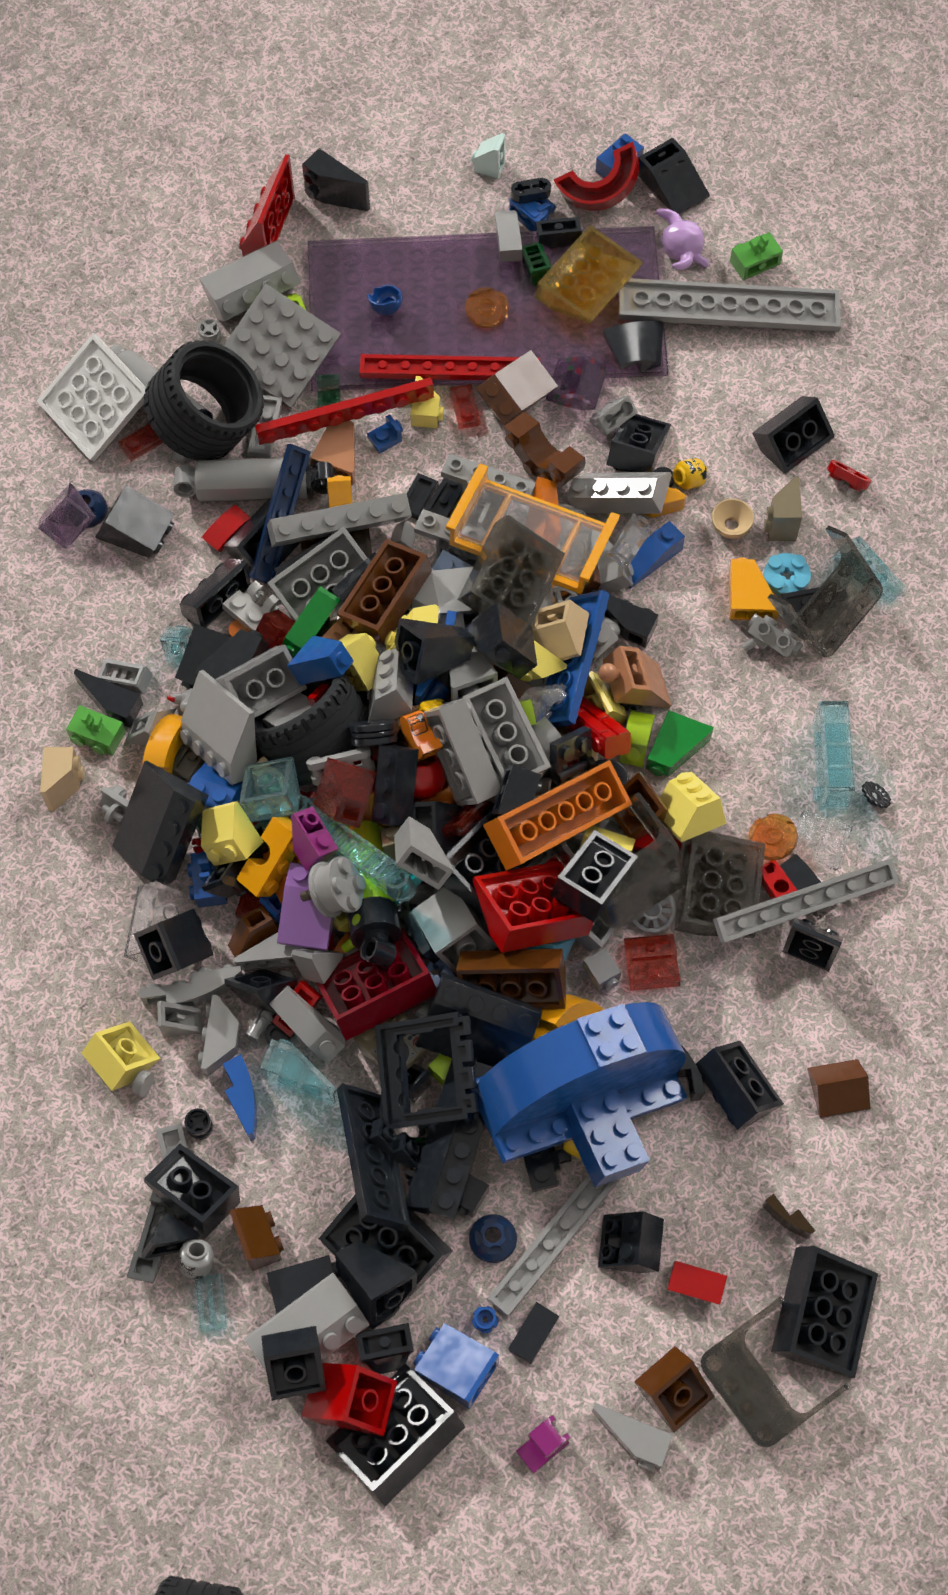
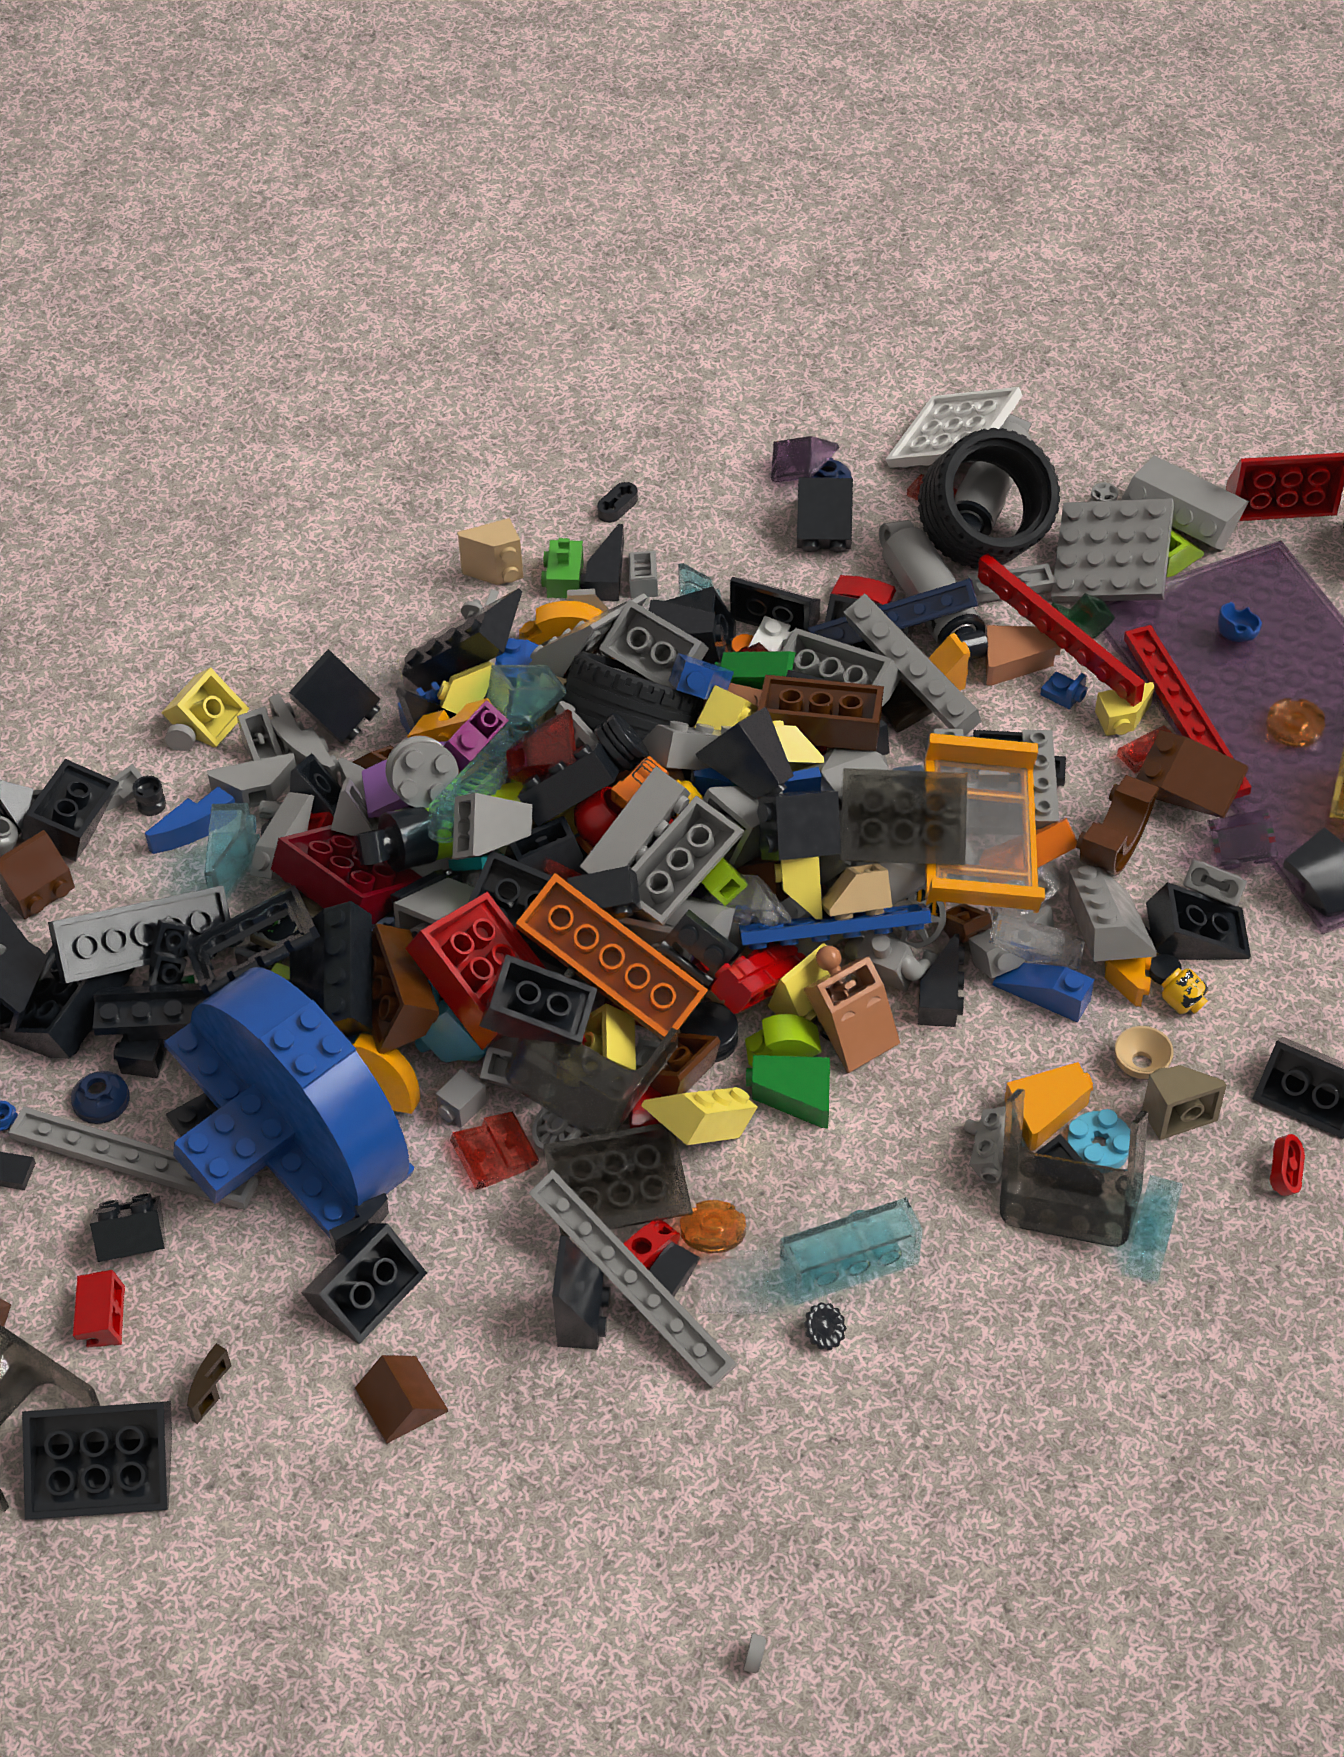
camera: 70 degrees right, 15 degrees down
(30, 670) = (614, 500): none -> black beam

